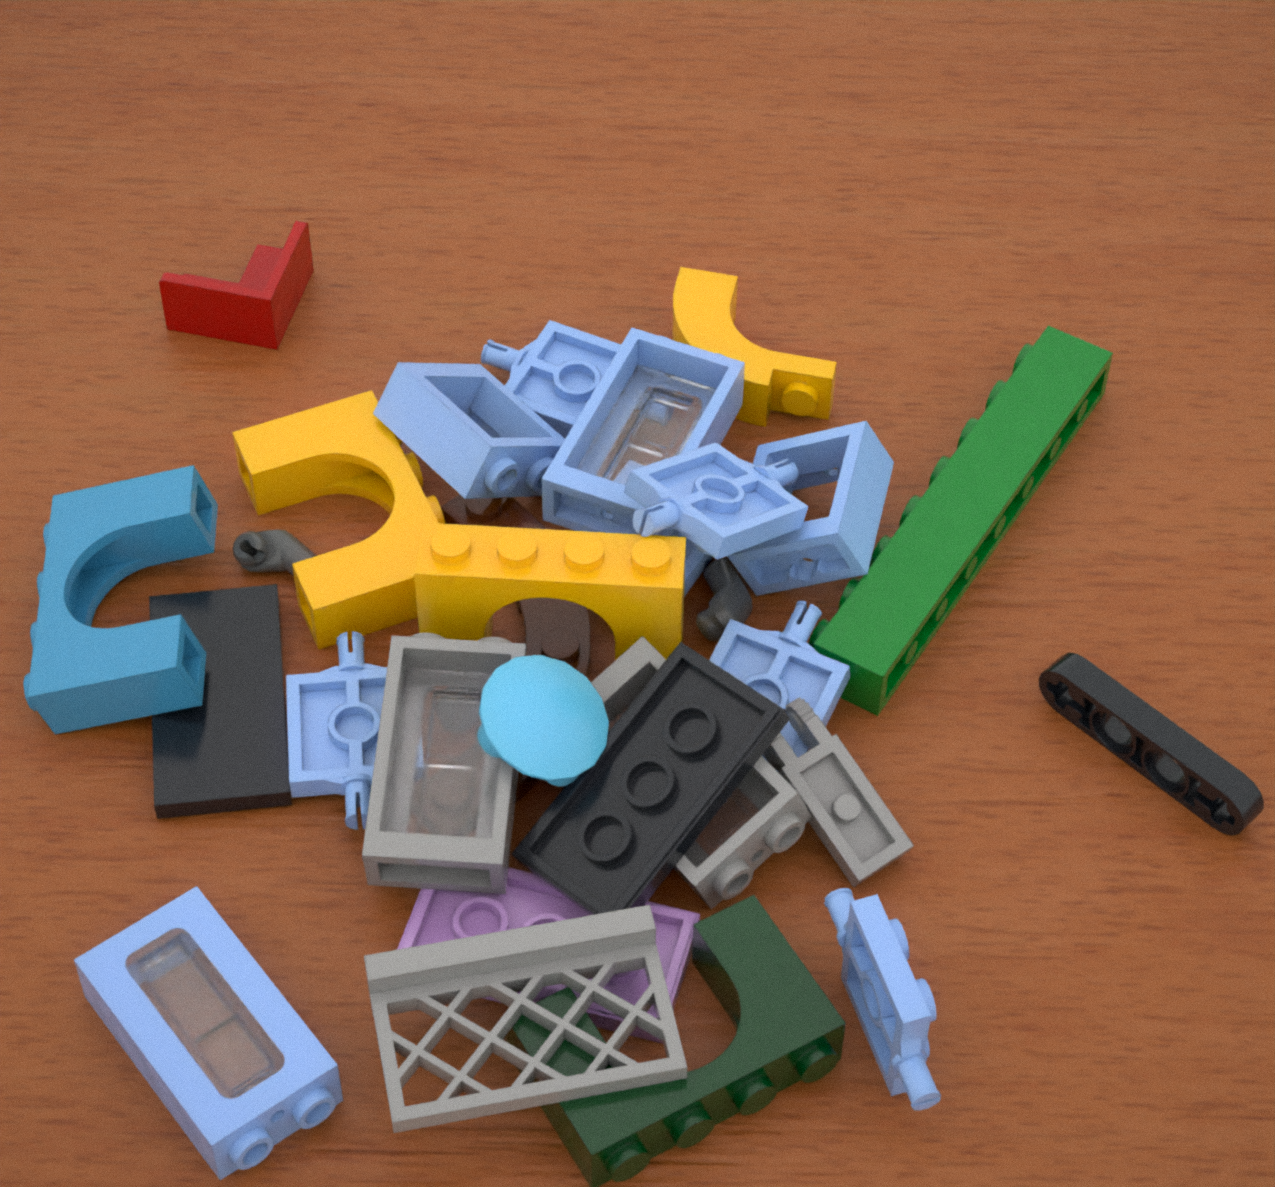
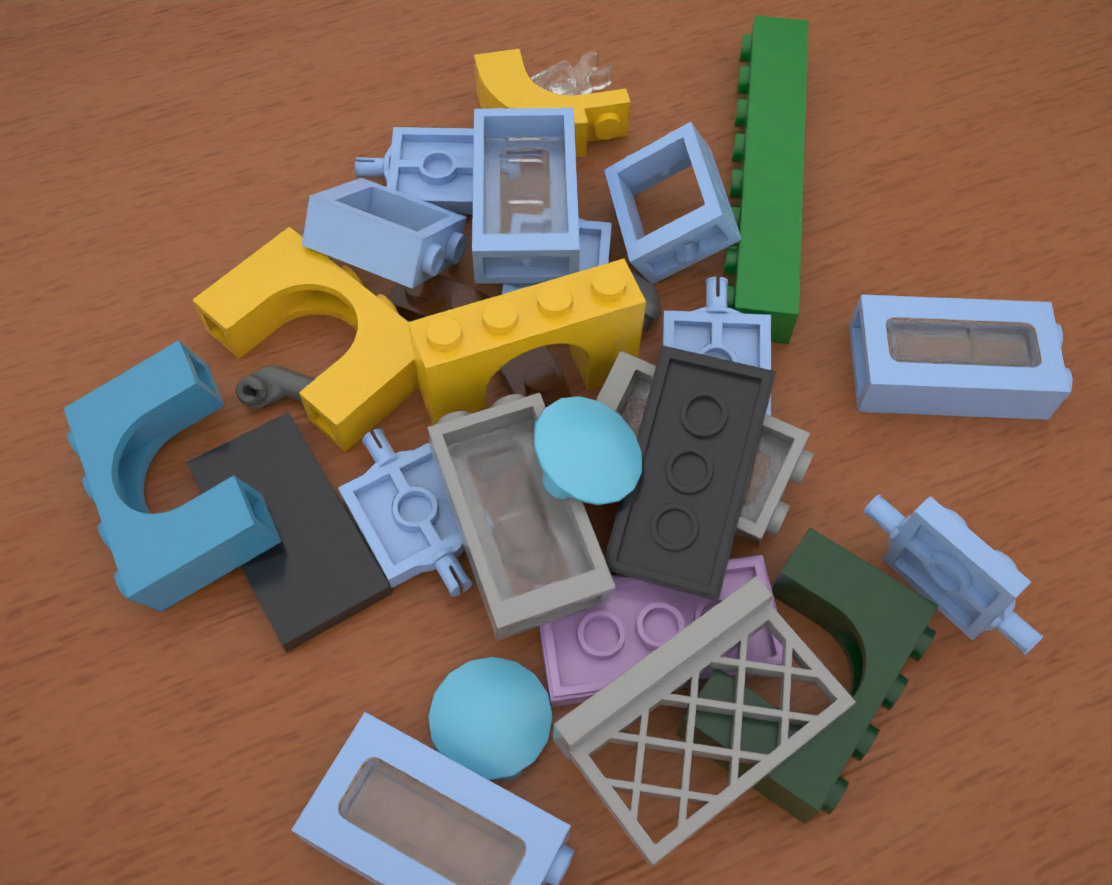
camera: 25 degrees left, 10 degrees up
(246, 311) = (149, 197): red panel -> none
(318, 954) = (491, 718): none -> medium azure dish
(716, 499) = (621, 221): light blue plate -> none
(785, 333) = (575, 80): none -> clear plate
(839, 797) = (836, 434): light grey hinge -> none
(1057, 795) = (957, 357): none -> light blue piece
(1151, 744) = (1070, 308): black beam -> none

